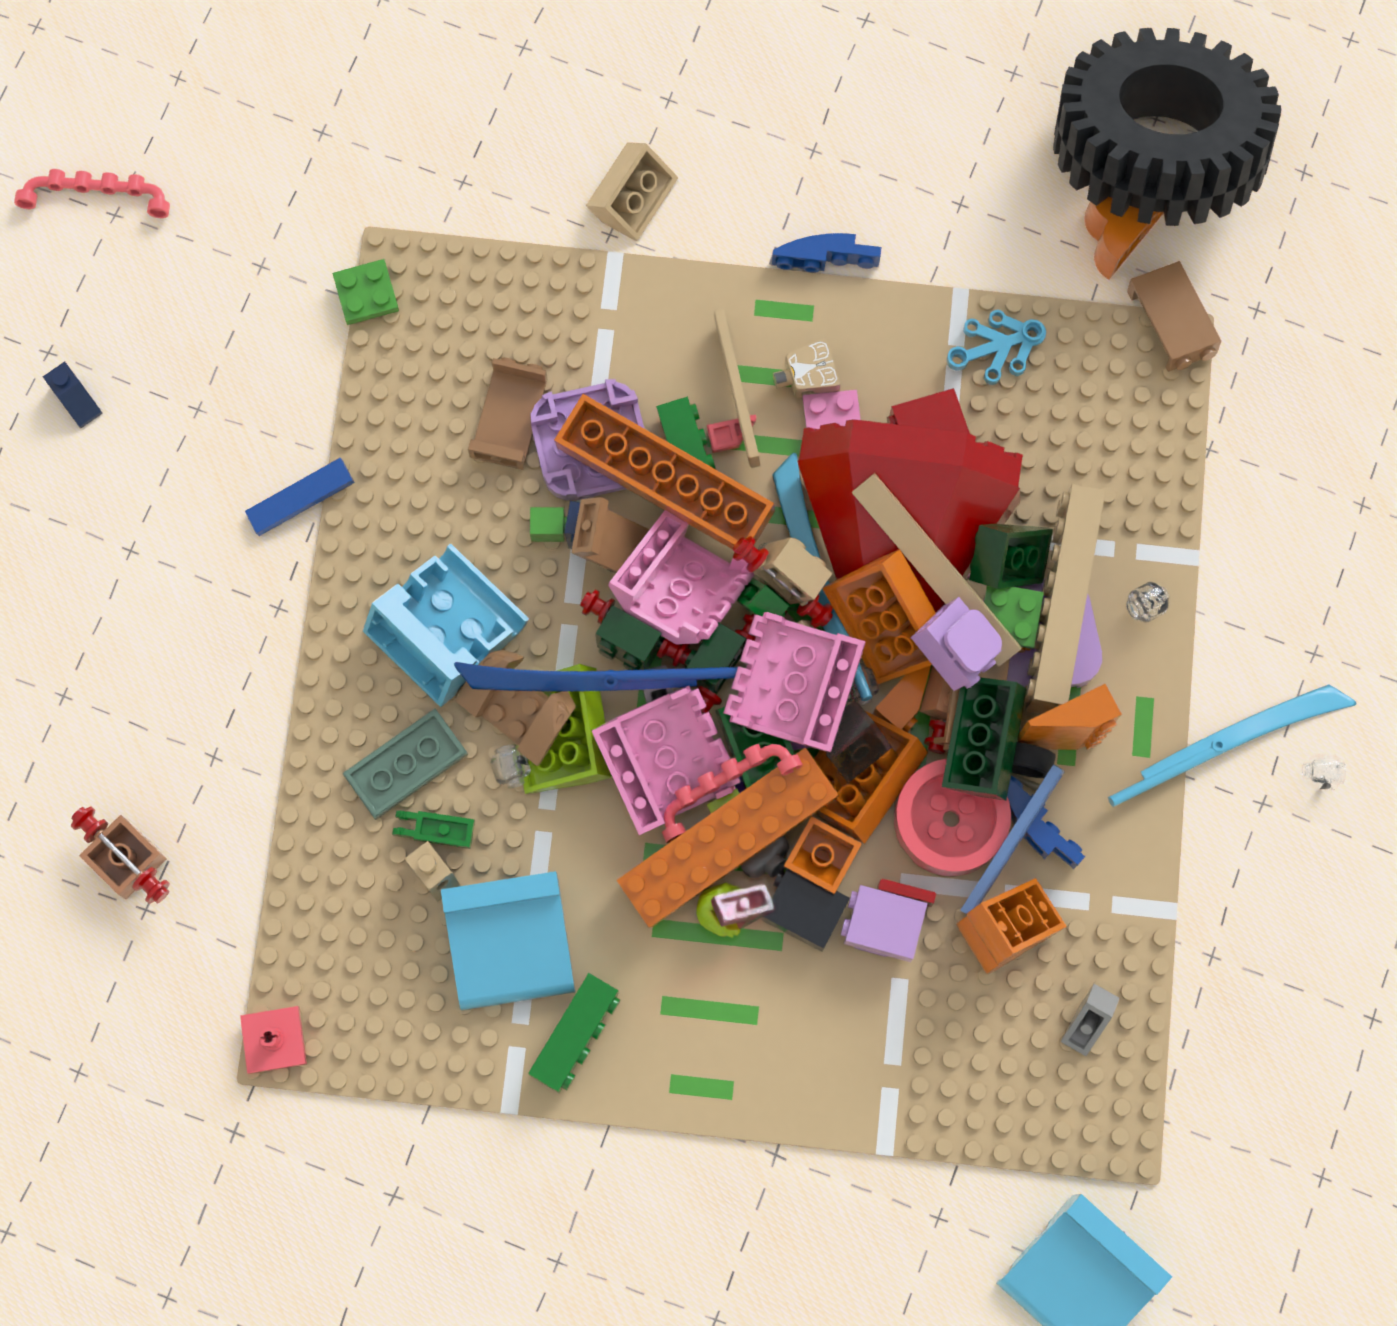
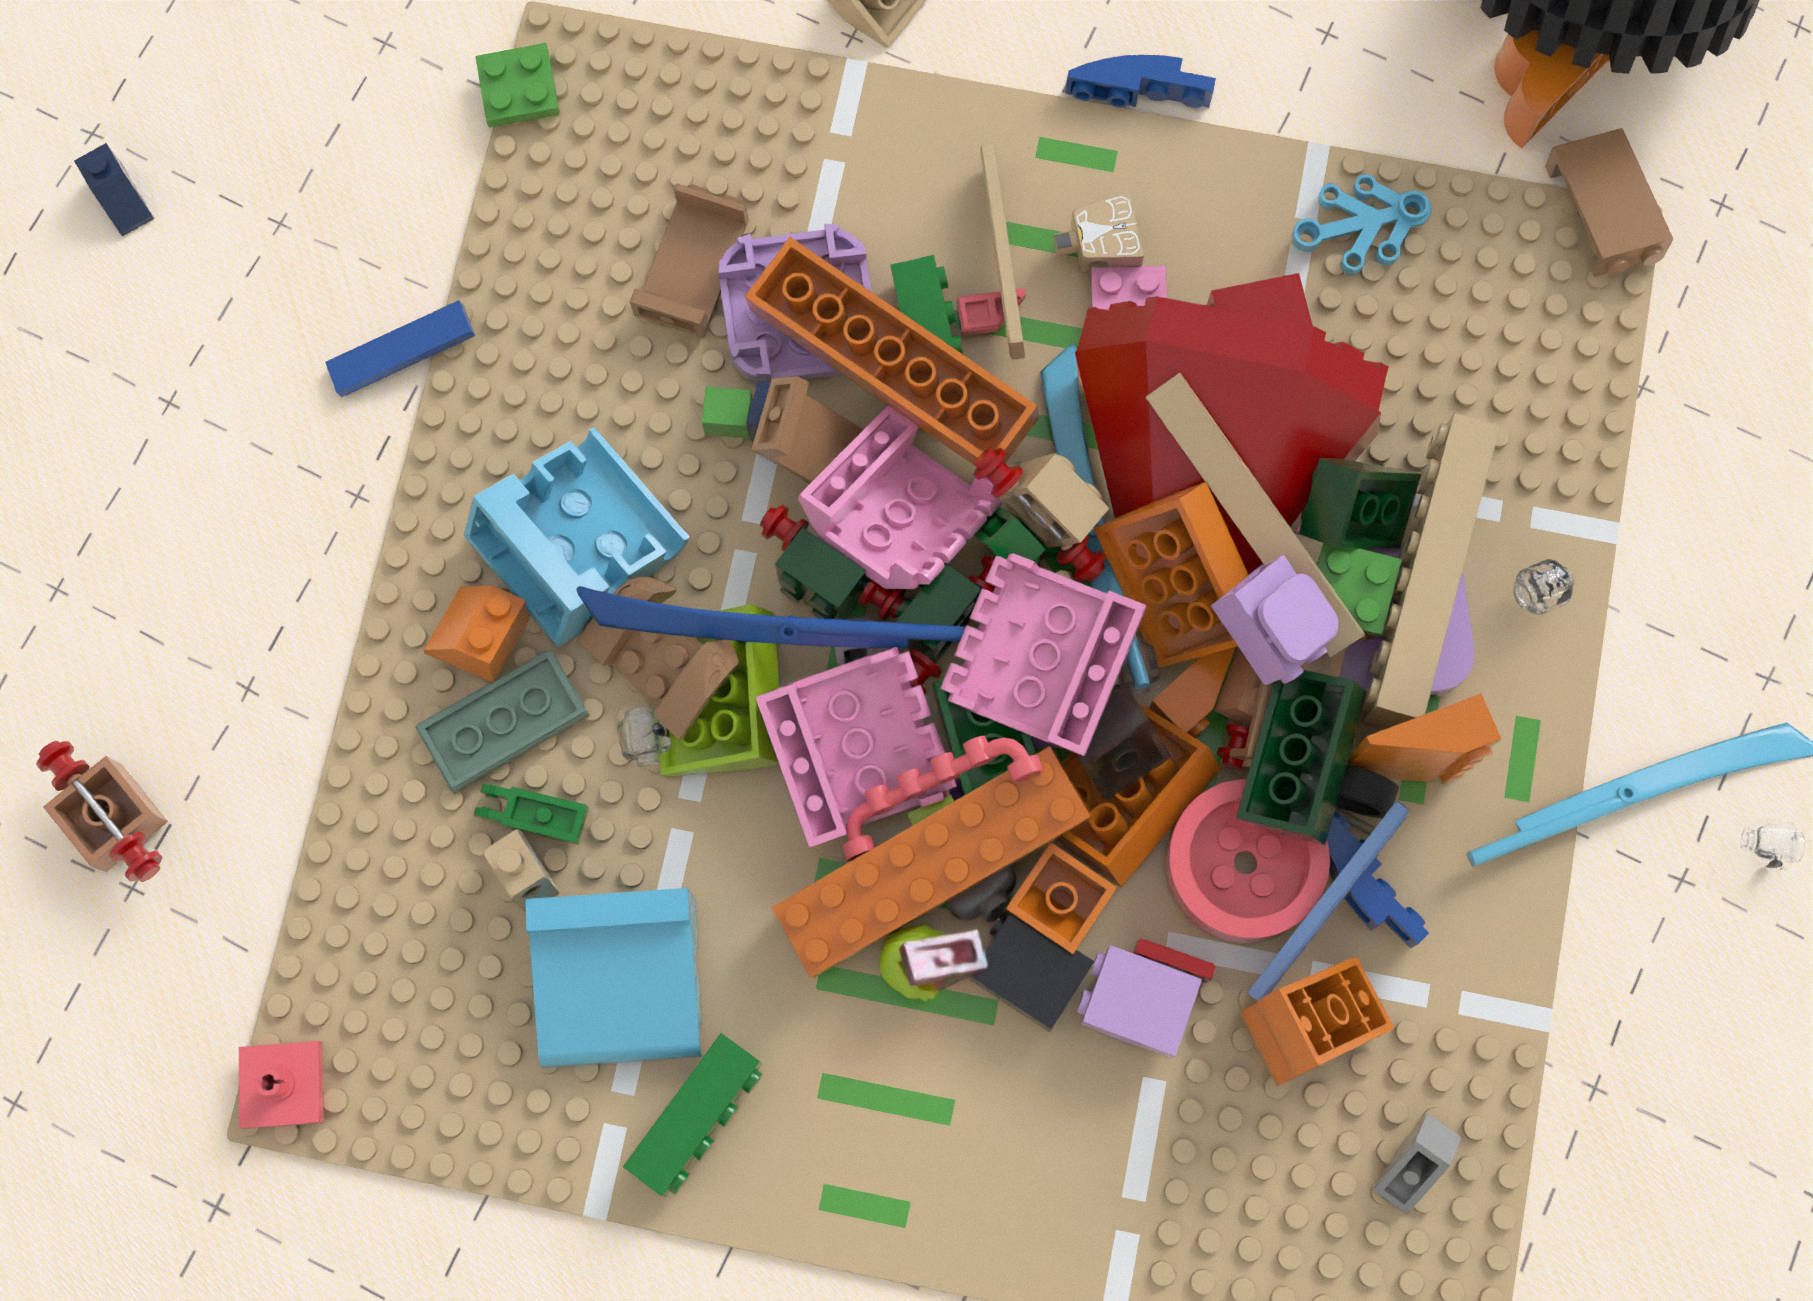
camera: 10 degrees right, 0 degrees up
(382, 699) = (479, 630): none -> orange slope

